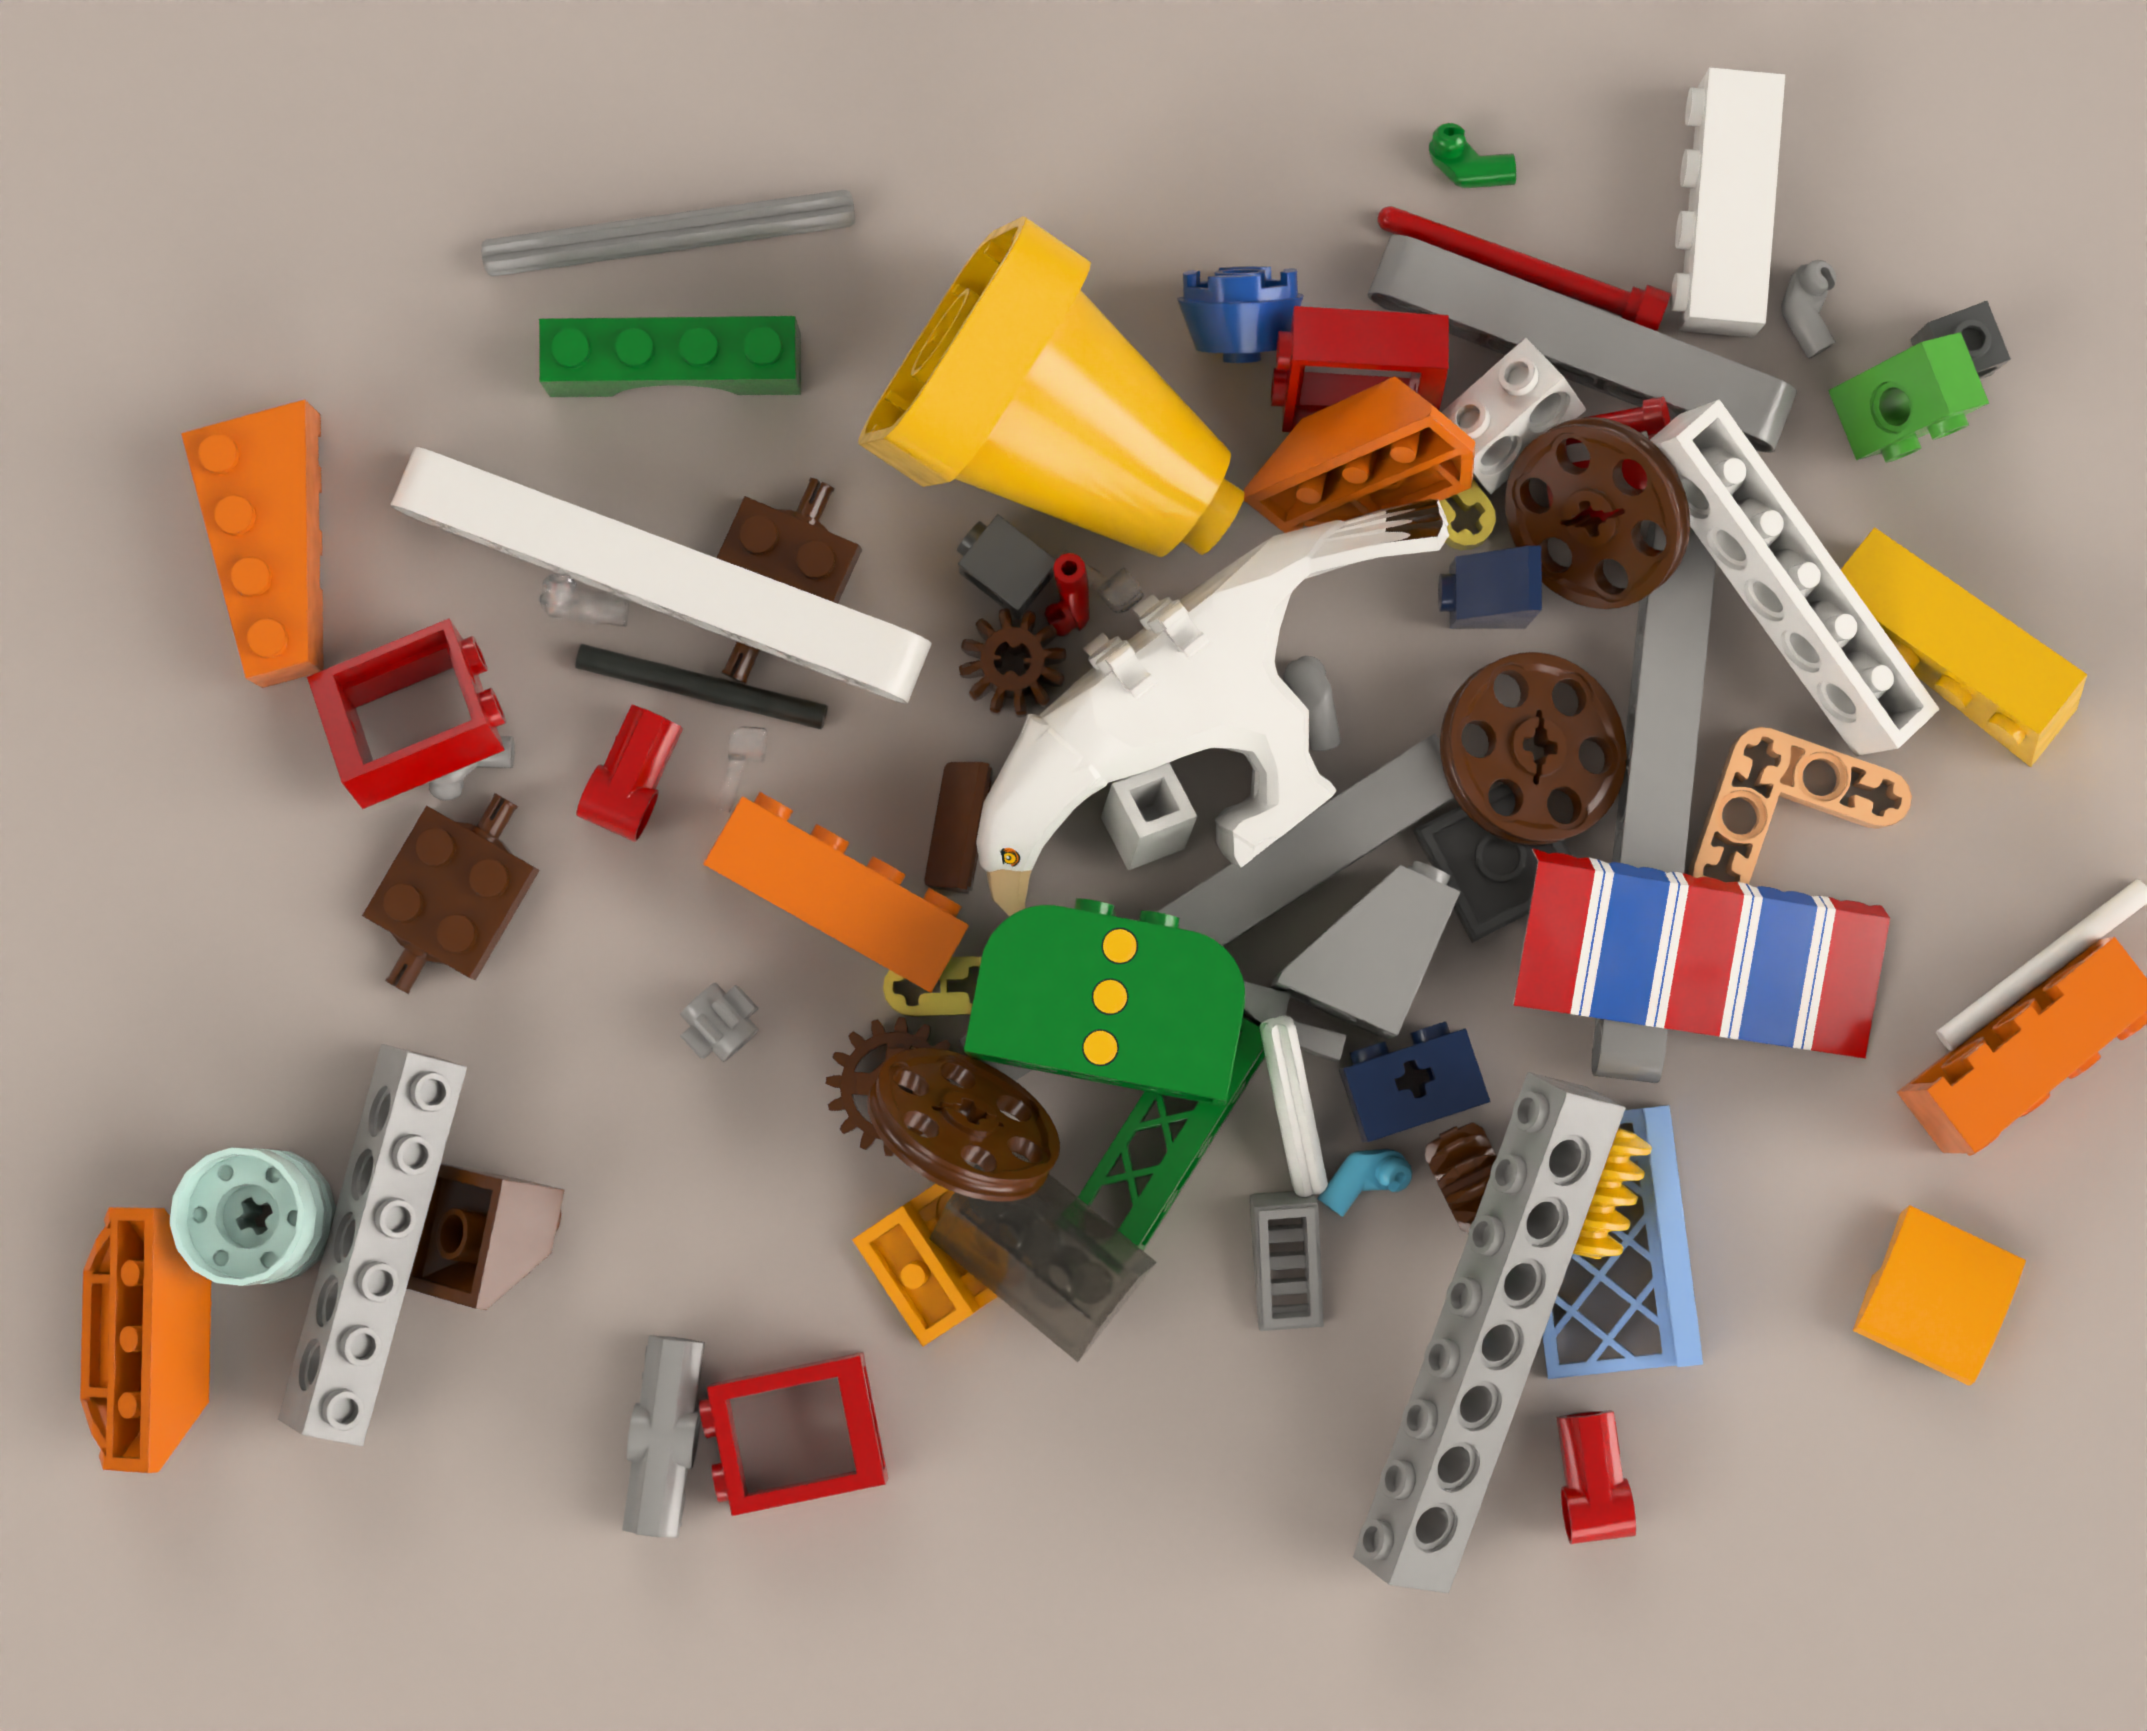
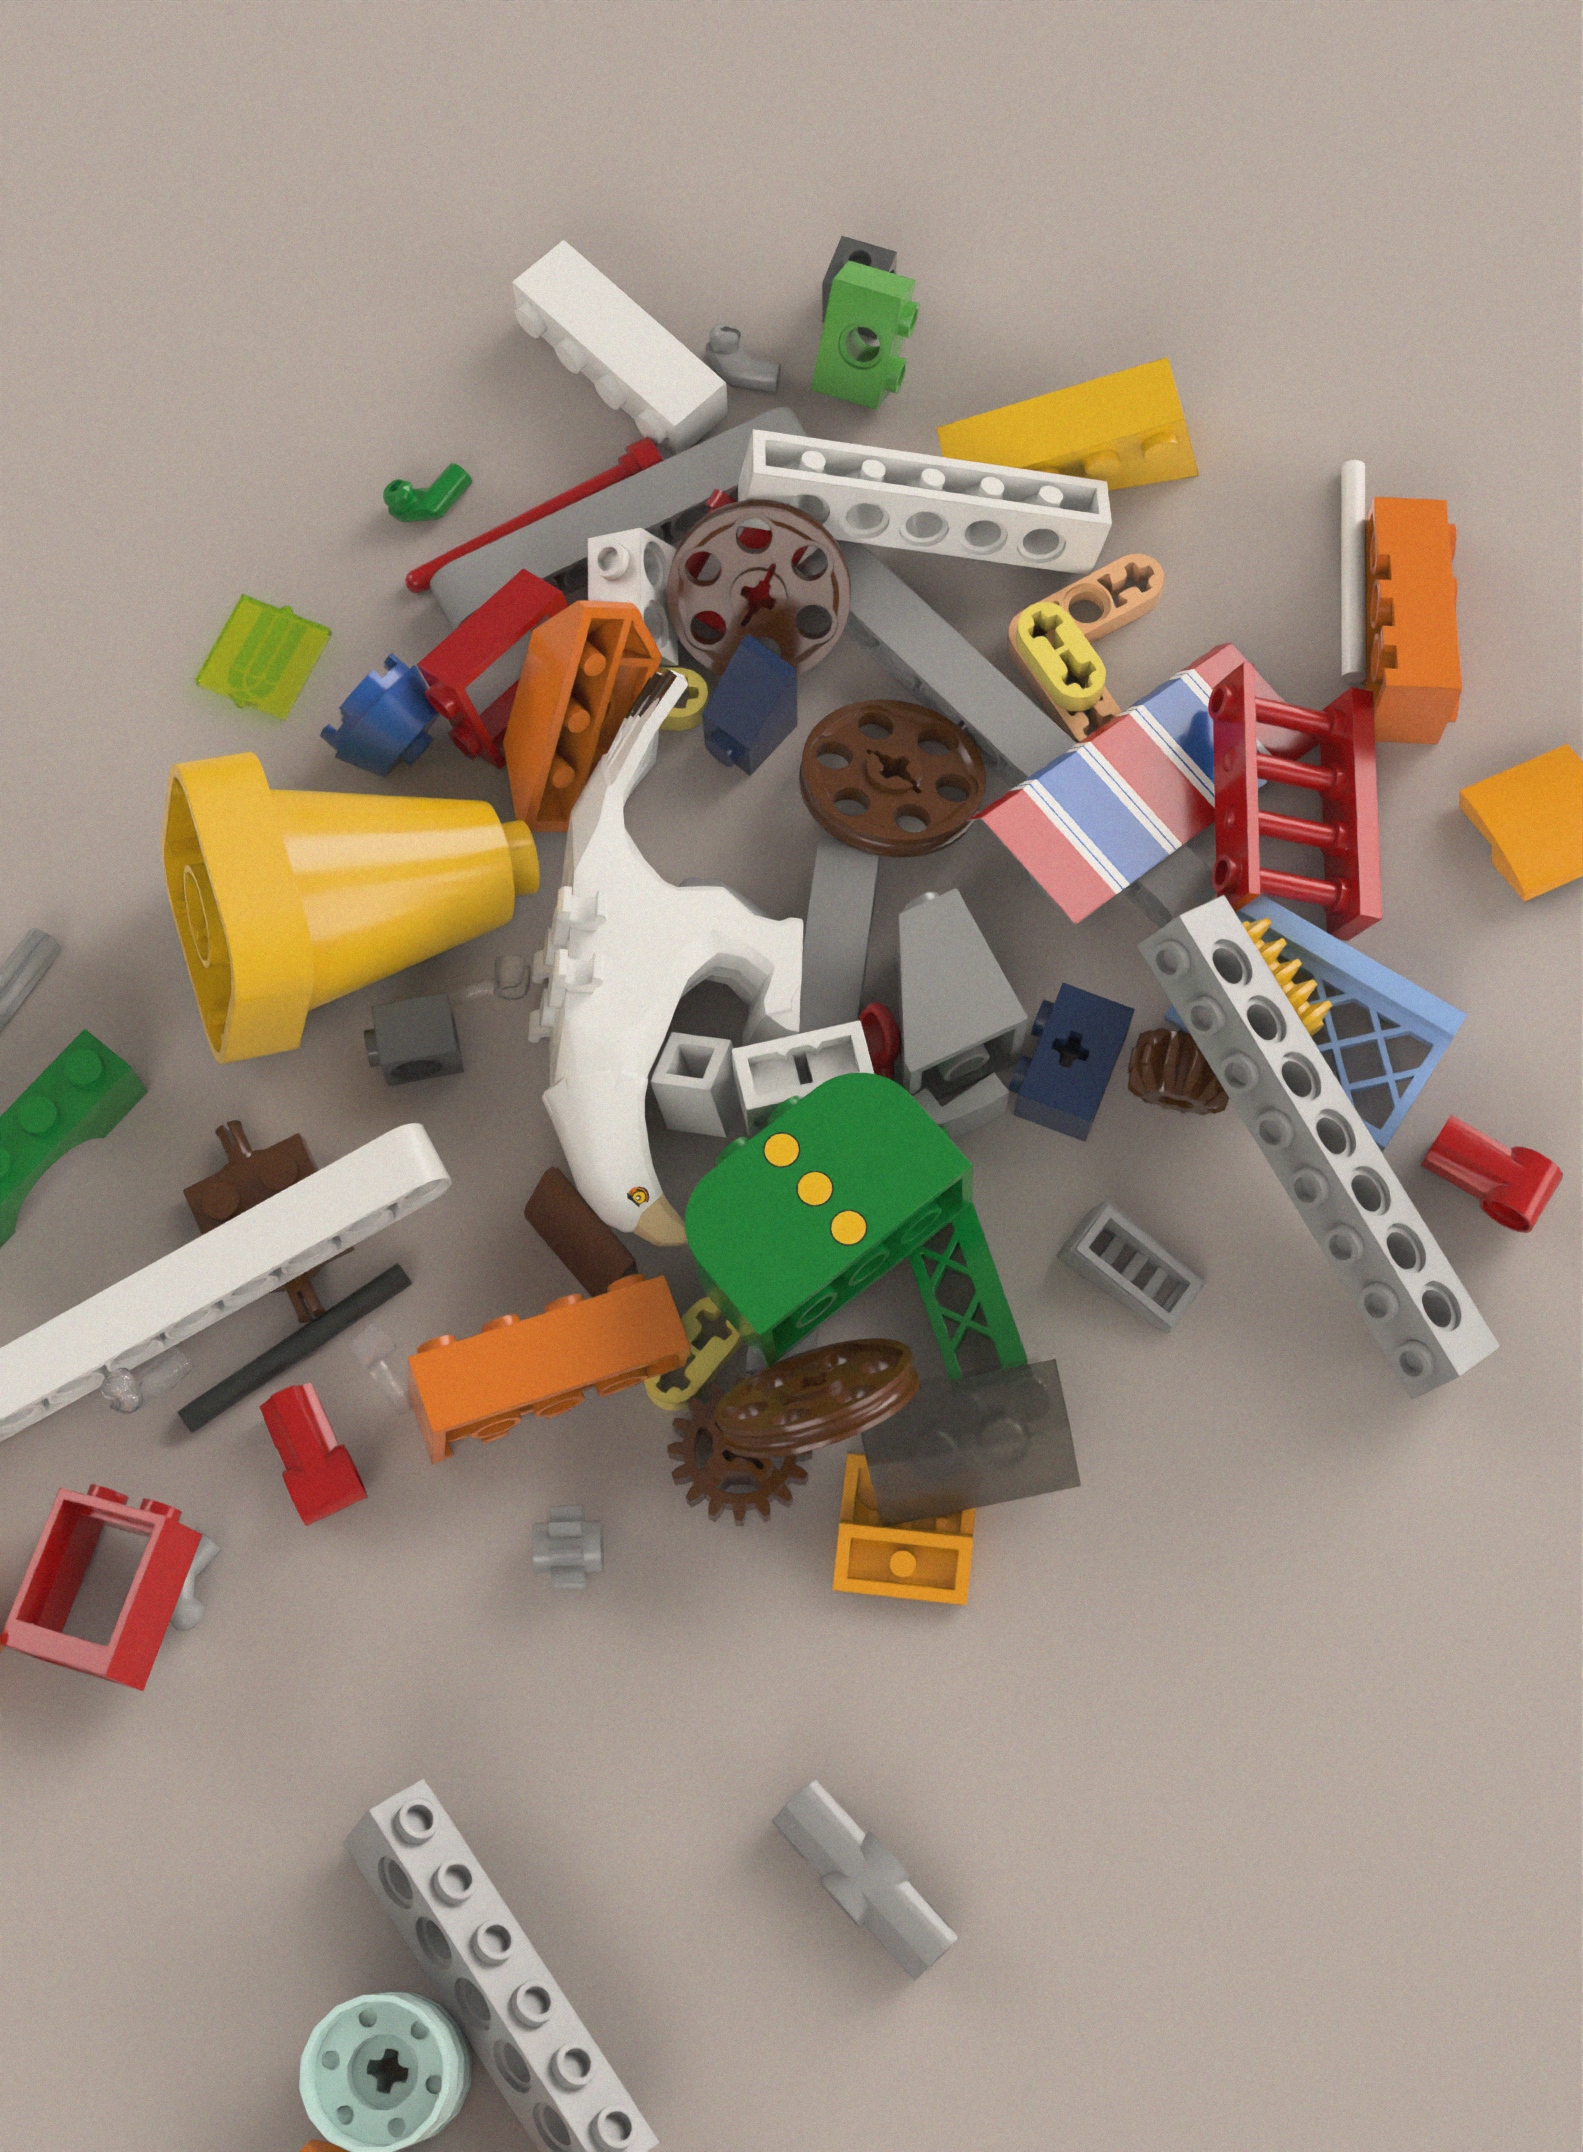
camera: 45 degrees left, 15 degrees down
(450, 893) = (274, 1683): reddish brown plate -> none
(483, 1235) = (572, 1887): reddish brown slope -> none
(861, 1423) = (988, 1705): red window -> none
(1015, 641) = (472, 1084): reddish brown gear -> none
(1073, 591) = (480, 1011): red arm -> none
(1208, 899) = (795, 1066): none -> white brick
(1223, 155) = (263, 657): none -> clear neon green piece
(1293, 1105) = (1016, 1157): white axle -> none
(1294, 931) = (881, 1037): none -> red piece
(1366, 1172) = (1112, 1152): medium azure arm -> none
(1489, 871) = (974, 865): dark grey tile -> none
(1767, 801) = (1071, 649): none -> light yellow beam
(1807, 1138) = (1343, 782): none -> red fence

